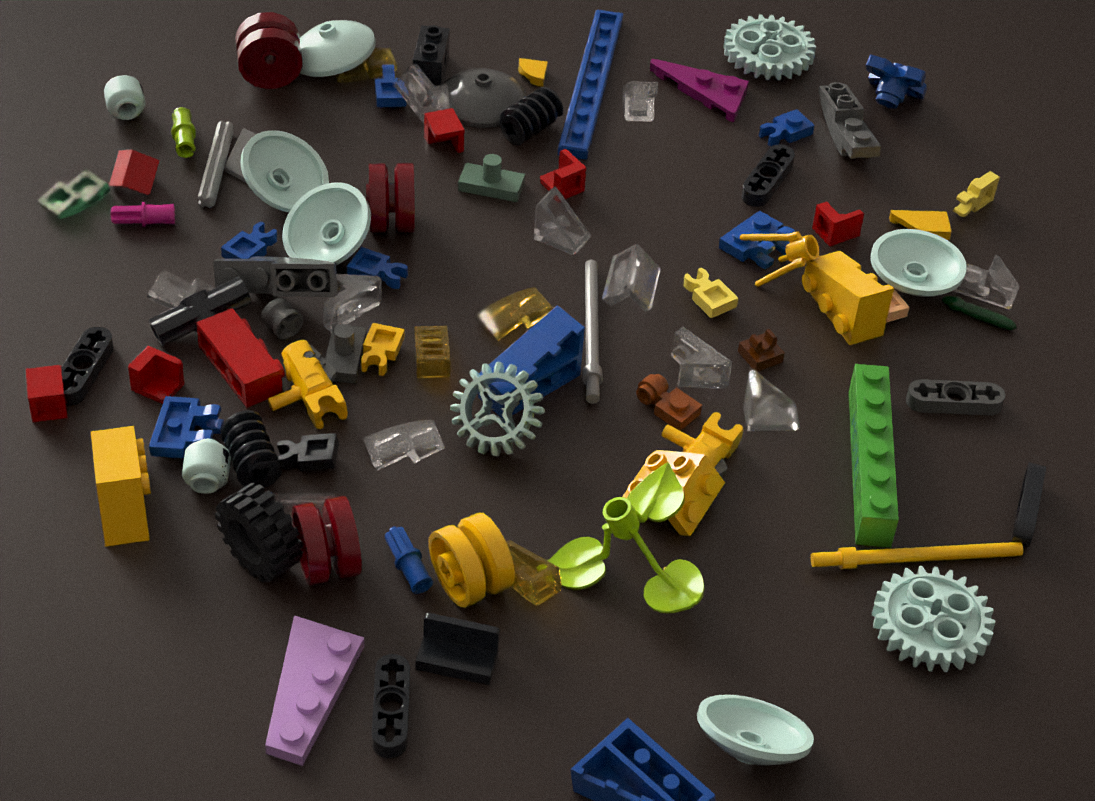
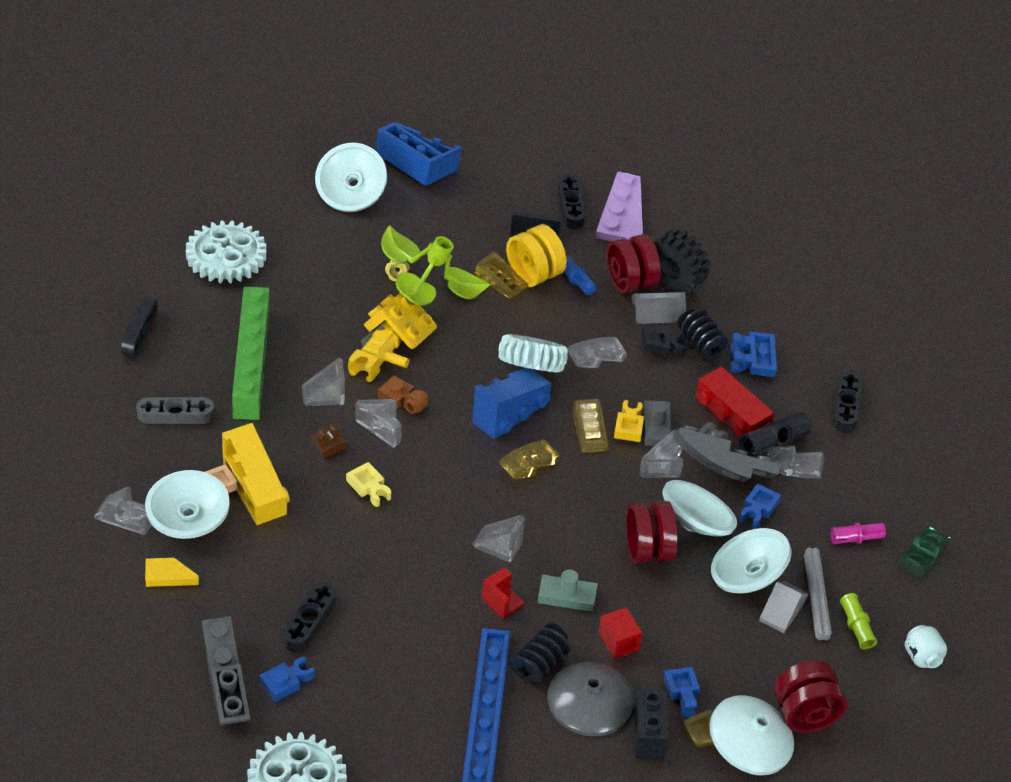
camera: 175 degrees right, 0 degrees up
(46, 393) = (864, 365): red panel -> none
(121, 484) = (784, 306): yellow wedge -> none
(134, 171) = (882, 570): red panel -> none
(156, 374) = (788, 394): red panel -> none
(206, 466) = (730, 319): light aqua head -> none
(312, 383) = (673, 388): yellow piece -> none
(377, 264) = (648, 490): blue plate -> none
(421, 93) = (642, 664): clear slope -> none
(533, 70) = (545, 733): yellow tile -> none
(592, 370) = (463, 414): light grey bar -> none
(632, 275) = (436, 493): clear panel -> none
(639, 100) = (436, 690): clear slope -> none
(705, 86) = (361, 725): magenta wing -> none
(756, 250) = (329, 549): blue plate -> none
(798, 251) = (294, 495): yellow plant -> none
(834, 226) = (250, 559): red panel -> none
(850, 557) = (276, 291): yellow bar -> none
(895, 81) = (168, 721): blue plant -> none
(979, 193) = (110, 598): light yellow plate -> none
(980, 313) = (124, 482): dark green piece -> none

